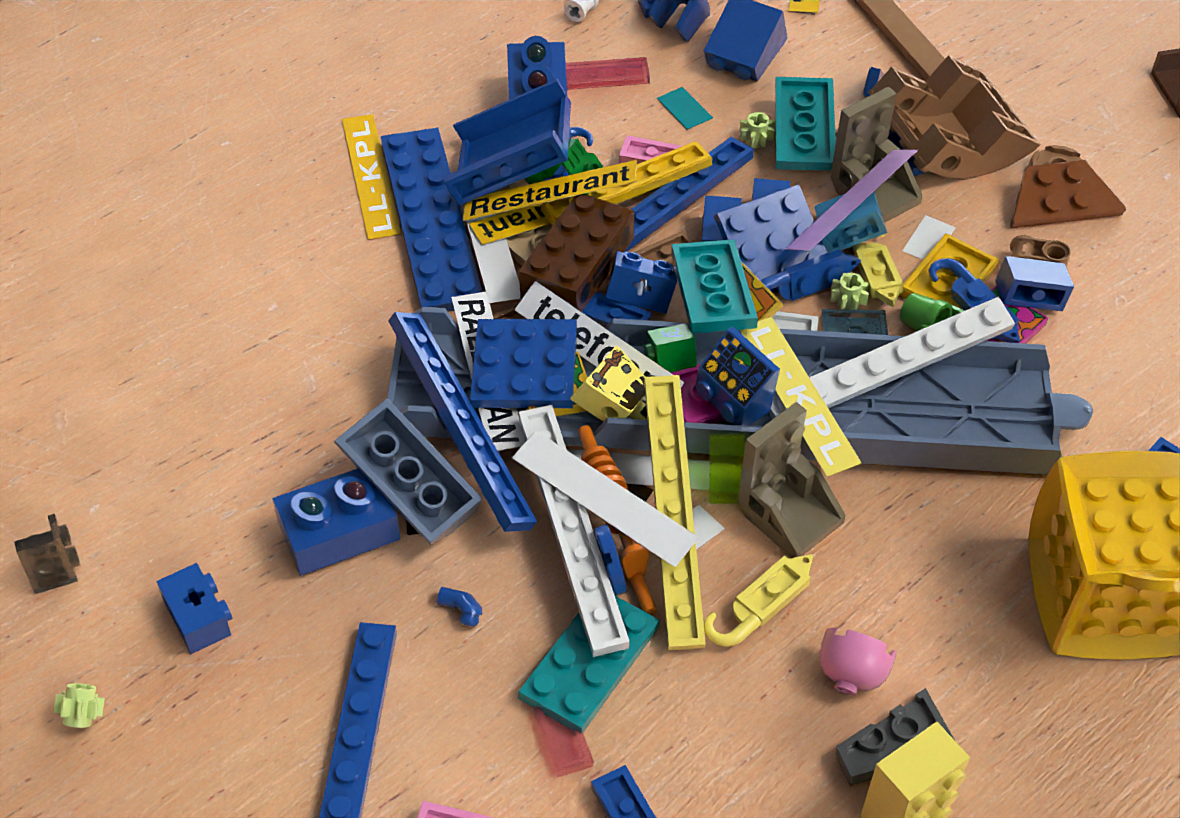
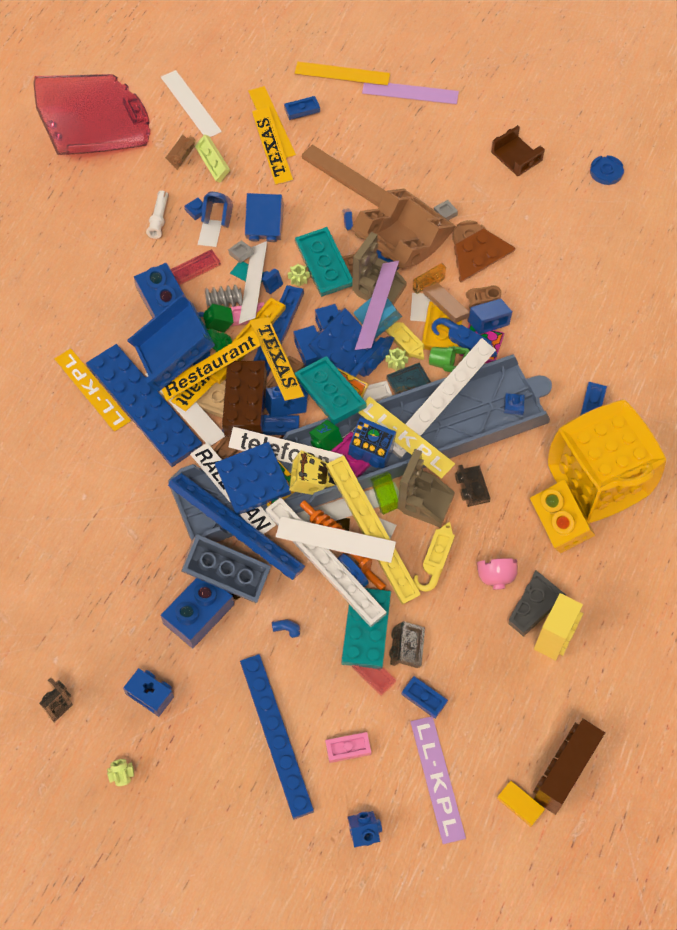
camera: 25 degrees left, 10 degrees up
(604, 140) = (218, 317): none -> green brick
(626, 121) = (224, 297): none -> light grey piece
(642, 713) = (407, 644): none -> clear smoke bracket
(655, 219) = (276, 359): none -> yellow sticker
(656, 40) = (210, 233): none -> white sticker
(681, 116) = (253, 283): none -> white sticker
(687, 73) = (240, 251): none -> light grey plate
(712, 124) = (271, 280): none -> blue tile
(882, 518) = (473, 485): none -> clear smoke bracket
(961, 201) = (429, 278): none -> clear yellow plate
(971, 242) = (446, 302): none -> medium nougat tile
(1011, 619) = (562, 516): none -> yellow piece
(1012, 420) = (514, 404): none -> blue tile
(1037, 121) = (446, 209): none -> light grey plate

